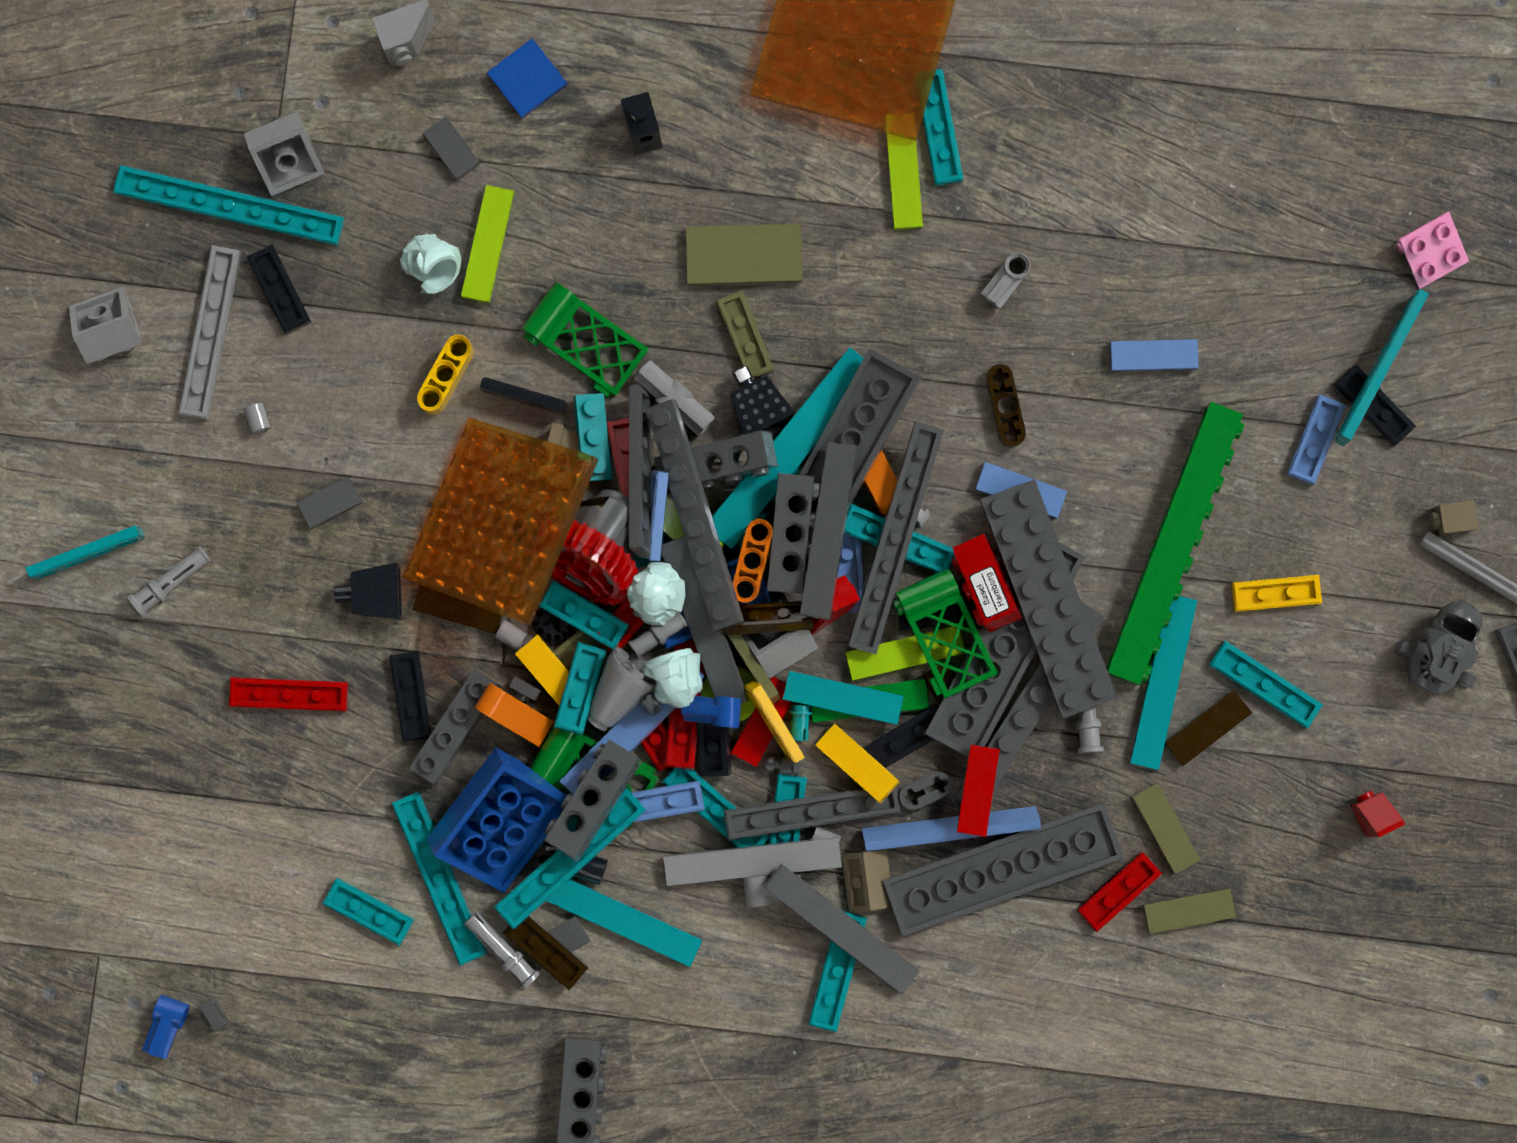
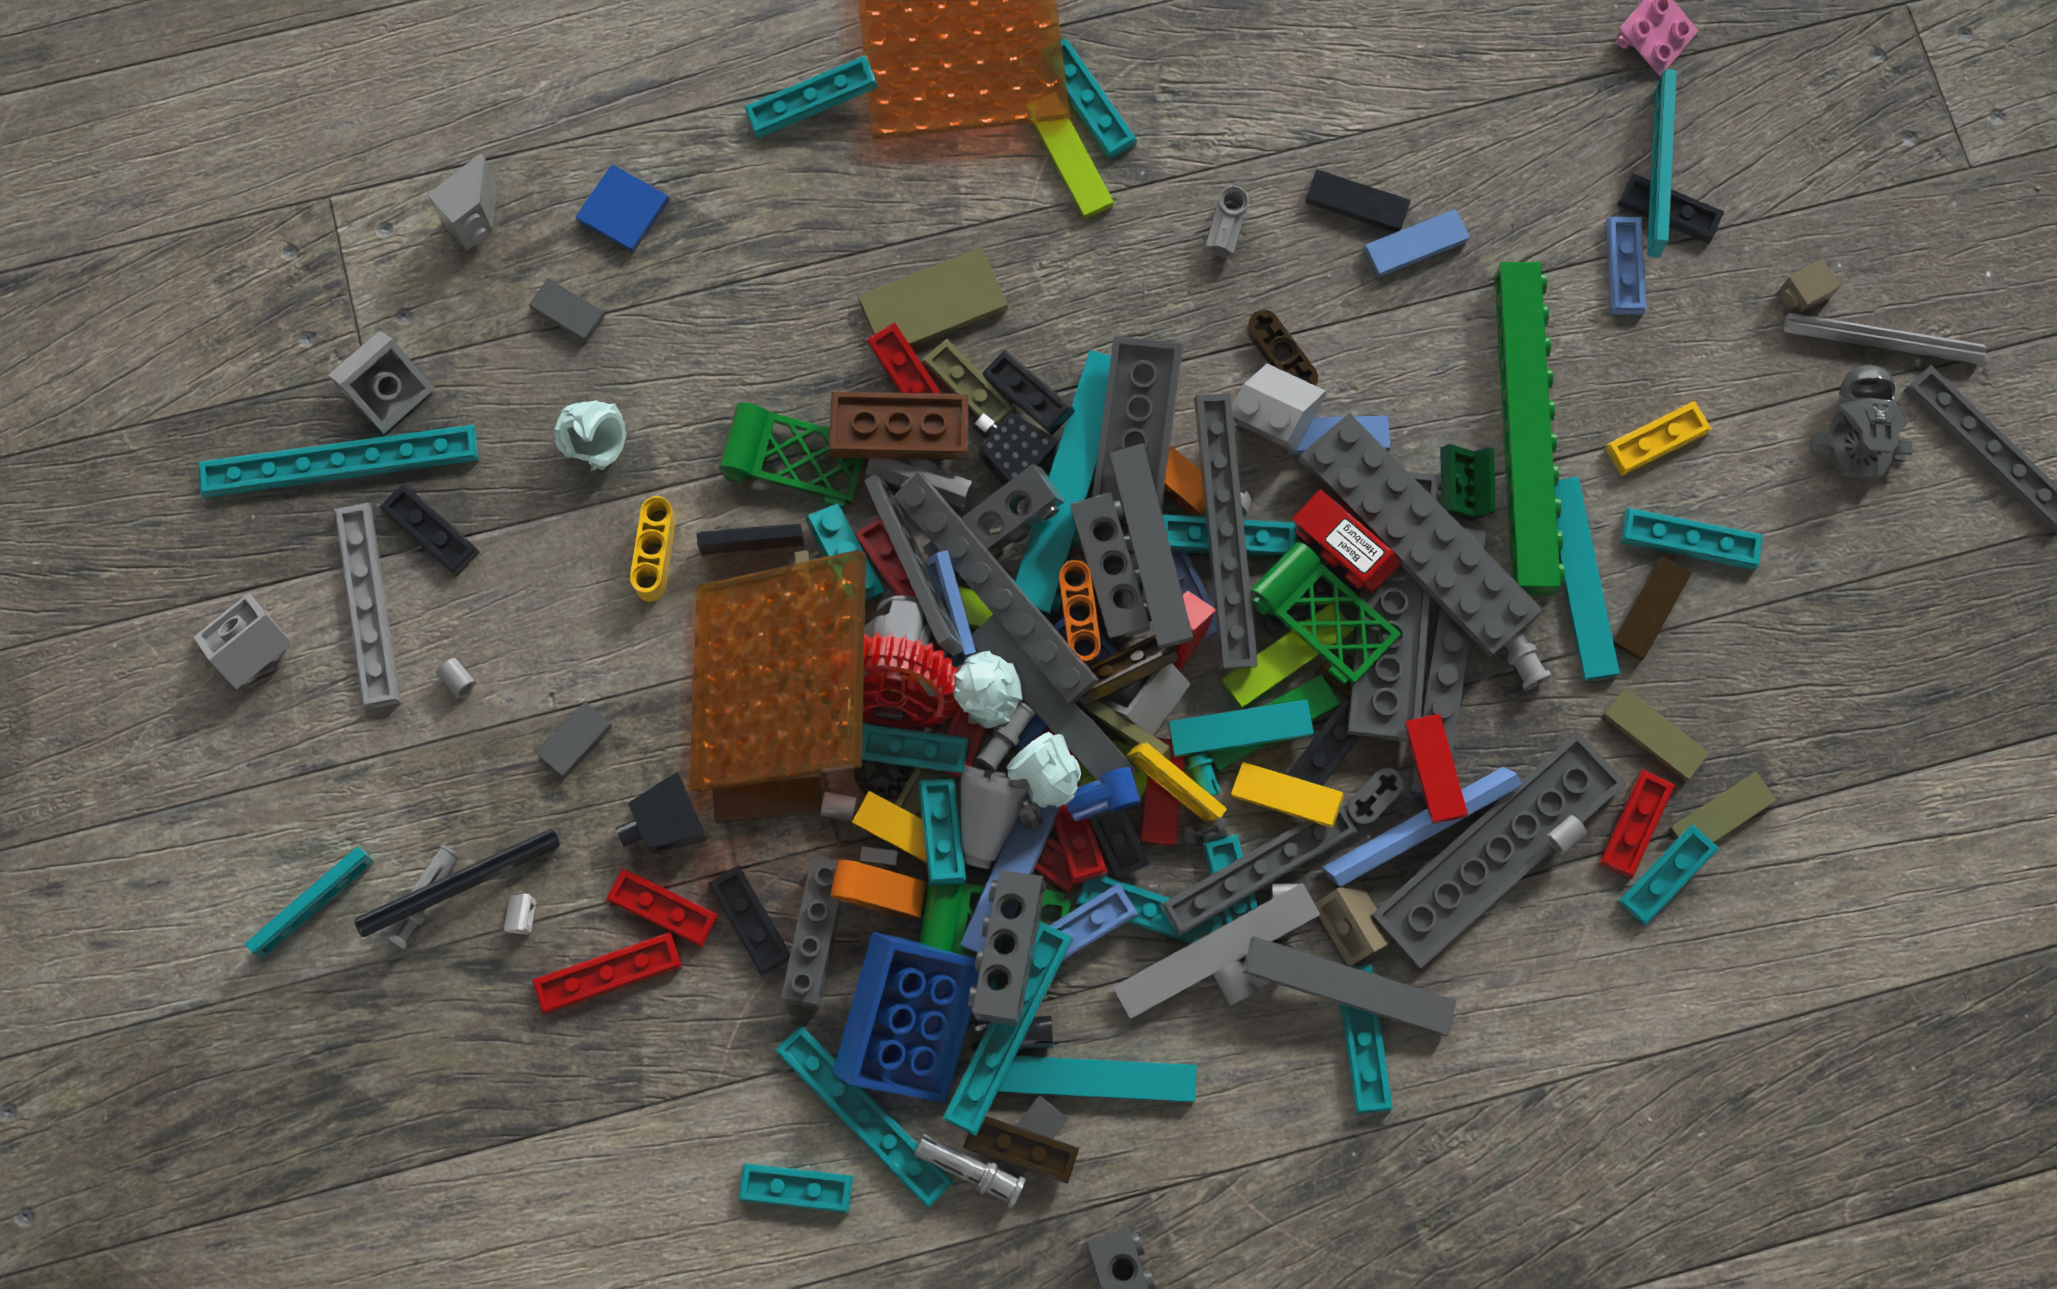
camera: 20 degrees left, 10 degrees down
(200, 582) = (456, 883): none -> black axle
(239, 623) = (520, 914): none -> white slope
(348, 660) = (662, 907): none -> red tile
(488, 244) = (646, 395): lime tile -> none
(641, 122) = (761, 199): black torso -> none
(674, 350) = (899, 425): none -> reddish brown tile
(699, 308) = (900, 362): none -> red tile
(714, 41) = (811, 96): none -> teal tile
(788, 362) = (1028, 392): none -> black tile
(981, 450) = (1277, 406): none -> light grey slope
(1057, 881) = (1566, 834): none -> light grey hinge
(1105, 570) = (1467, 482): none -> dark green bracket
(1121, 301) = (1357, 201): none -> black tile
(1124, 940) = (1668, 874): none -> teal tile
(1376, 814) = (1877, 626): red slope -> none

